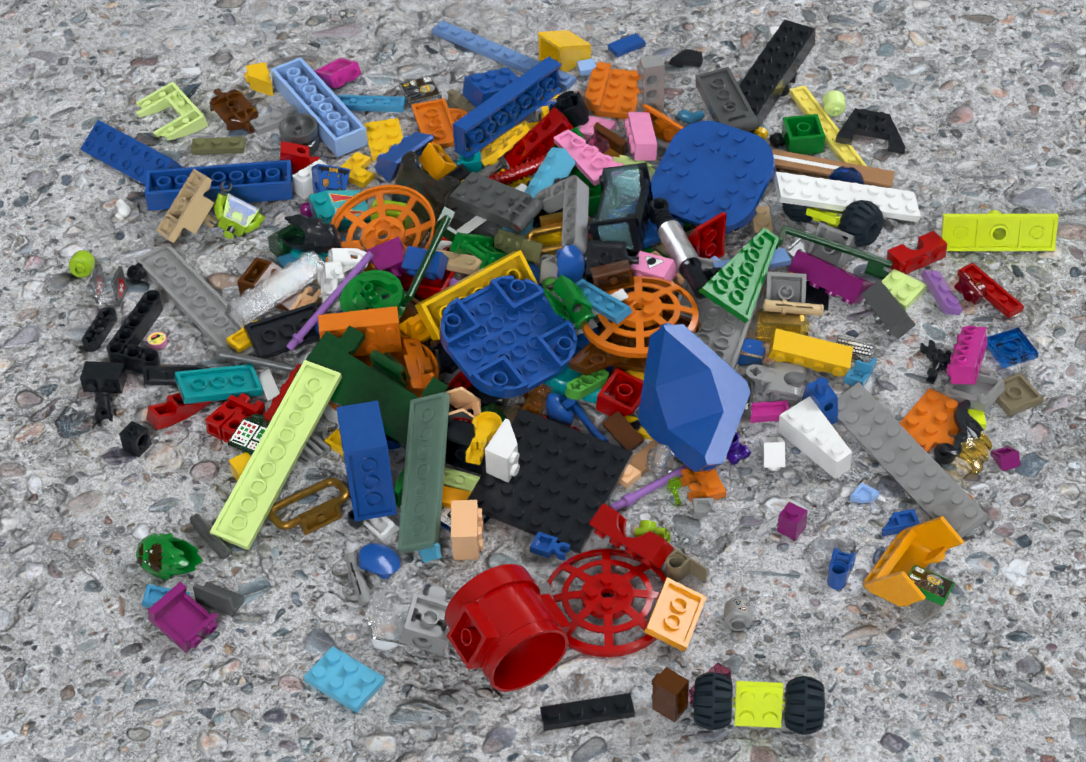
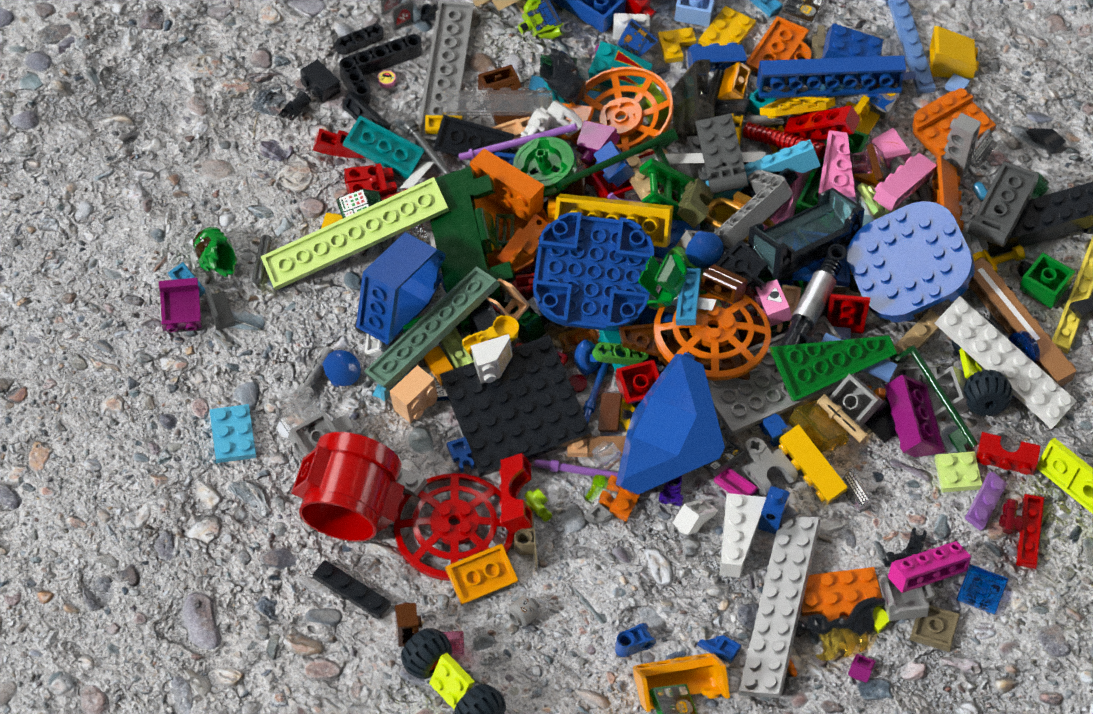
camera: 40 degrees right, 10 degrees up
(135, 439) = (289, 146): black brick -> none
(317, 516) = (331, 301): pearl gold bar -> none
(573, 107) = (880, 116): black brick -> none
(626, 45) = (1014, 88): blue tile -> none
(792, 521) = (642, 578): magenta brick -> none
(860, 372) = (839, 512): dark azure slope -> none
(864, 494) = (722, 604): light blue tile -> none
(887, 310) = (921, 480): dark grey brick -> none

